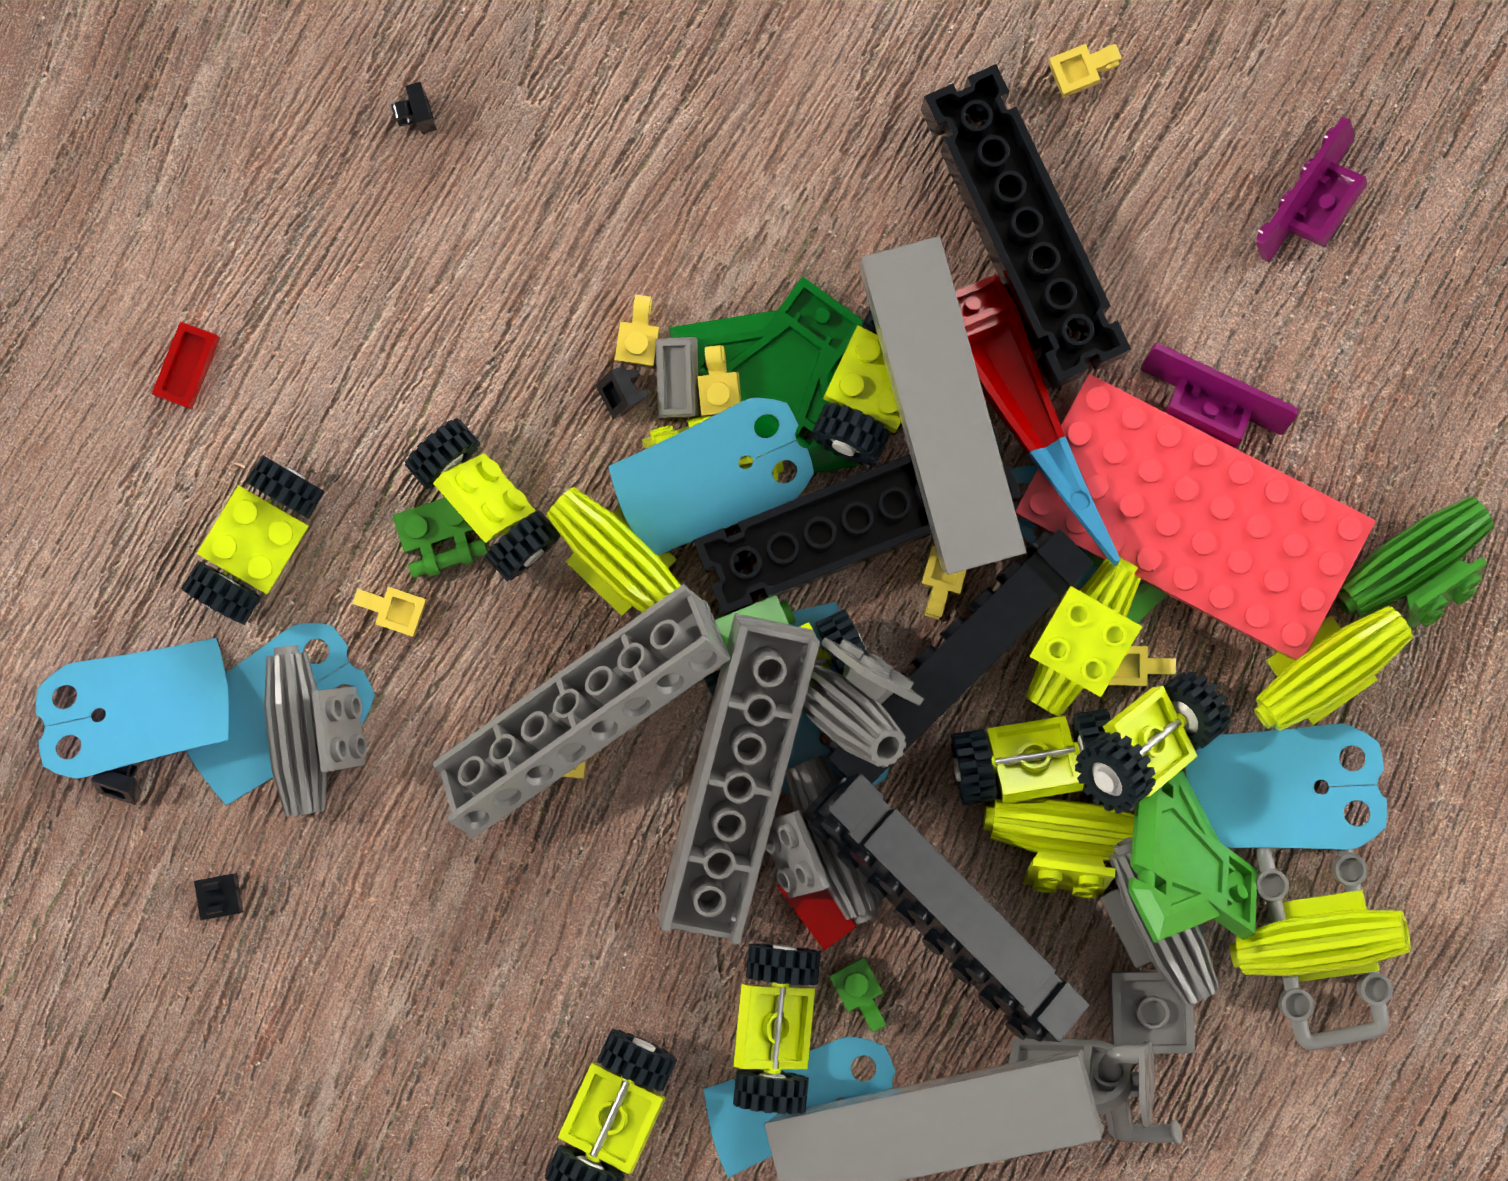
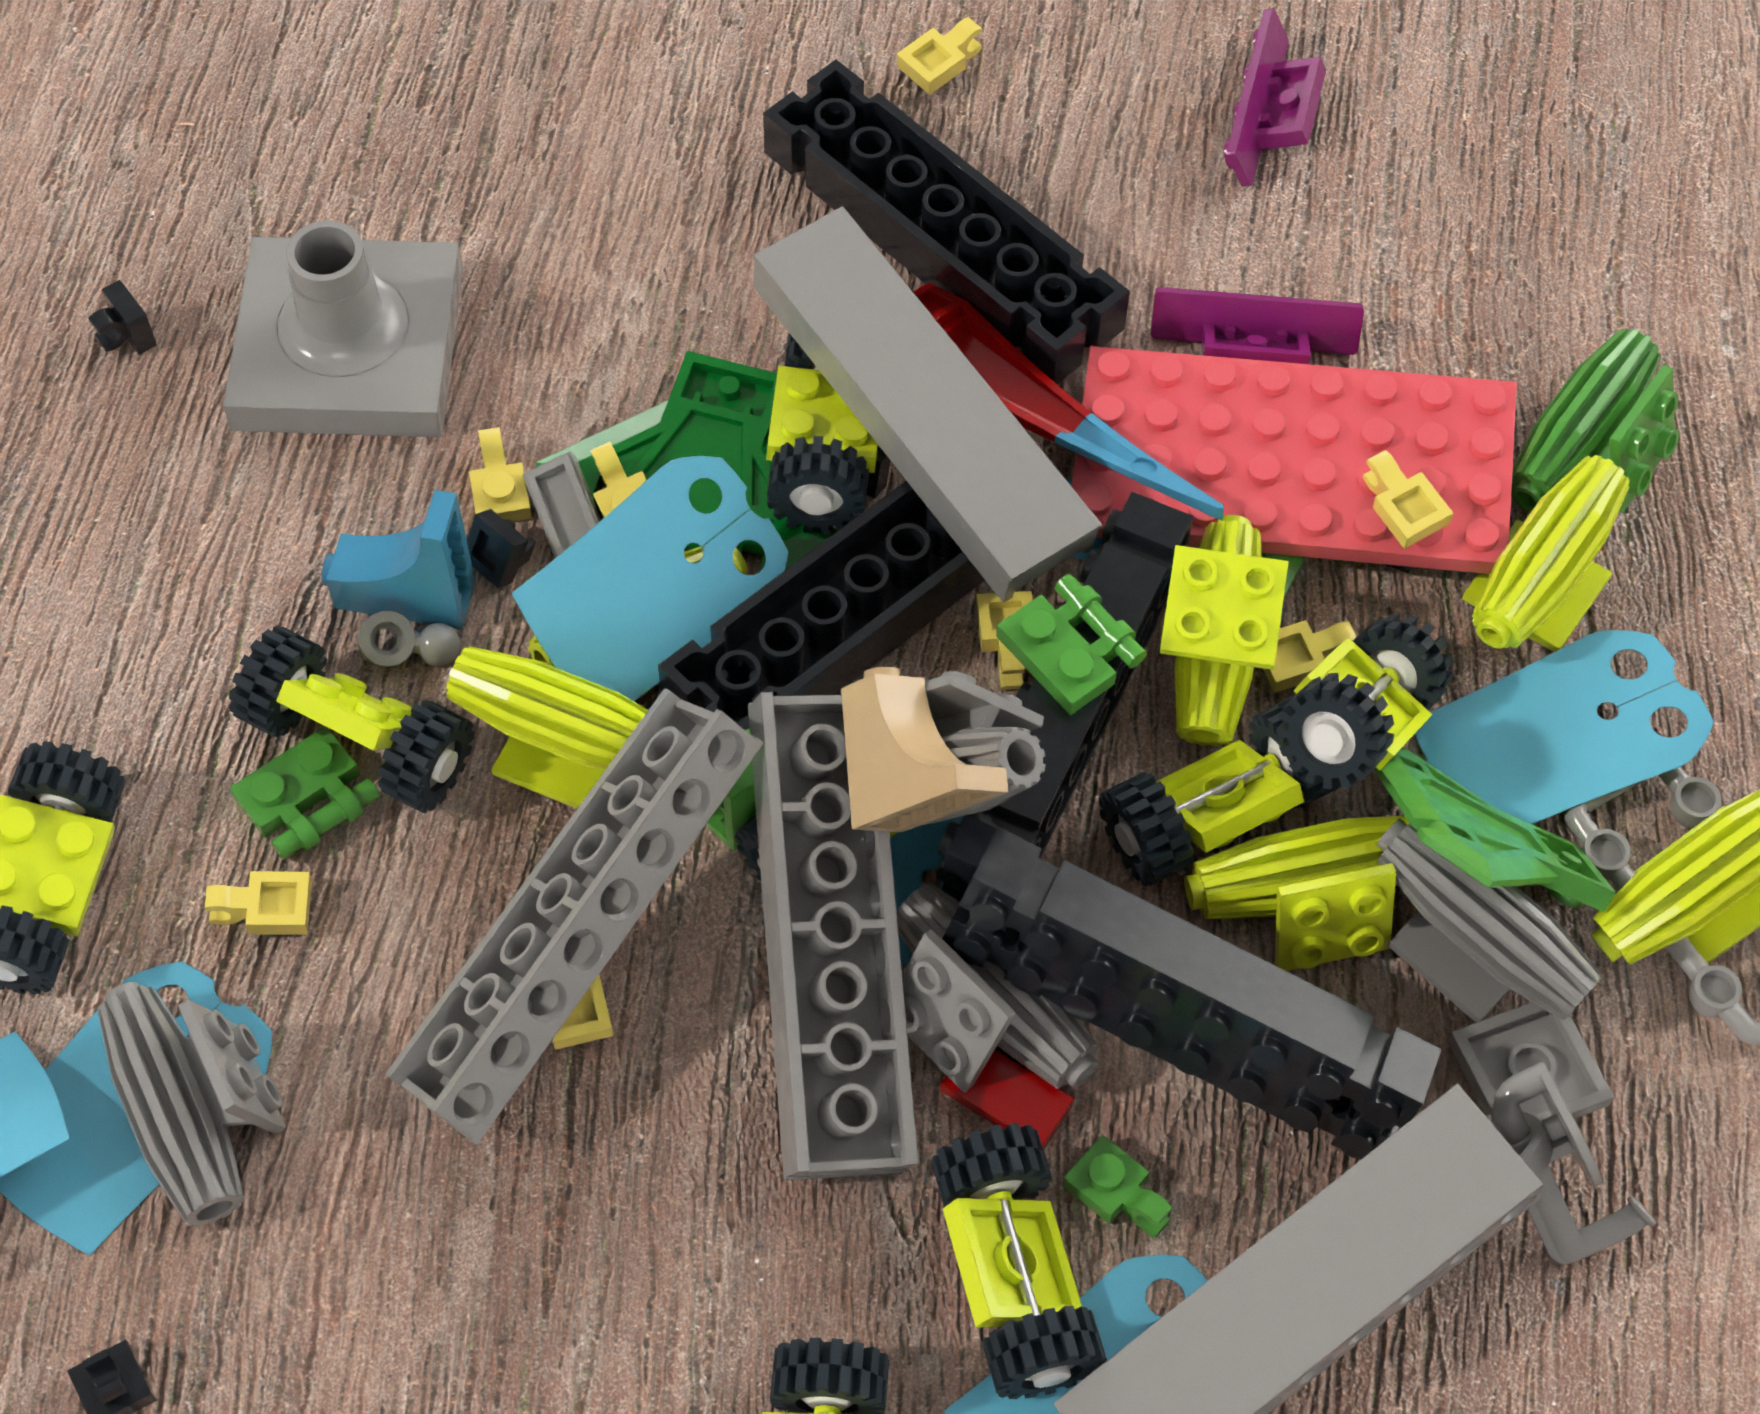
camera: 25 degrees left, 25 degrees down
(550, 396) = (413, 572): none -> dark azure arch
(558, 449) = (435, 644): none -> light grey plate
(577, 210) = (344, 335): none -> light grey piece
(812, 711) = (898, 760): none -> tan arch
(956, 640) = (1059, 655): none -> bright green plate
(1249, 603) = (1405, 505): none -> light yellow plate

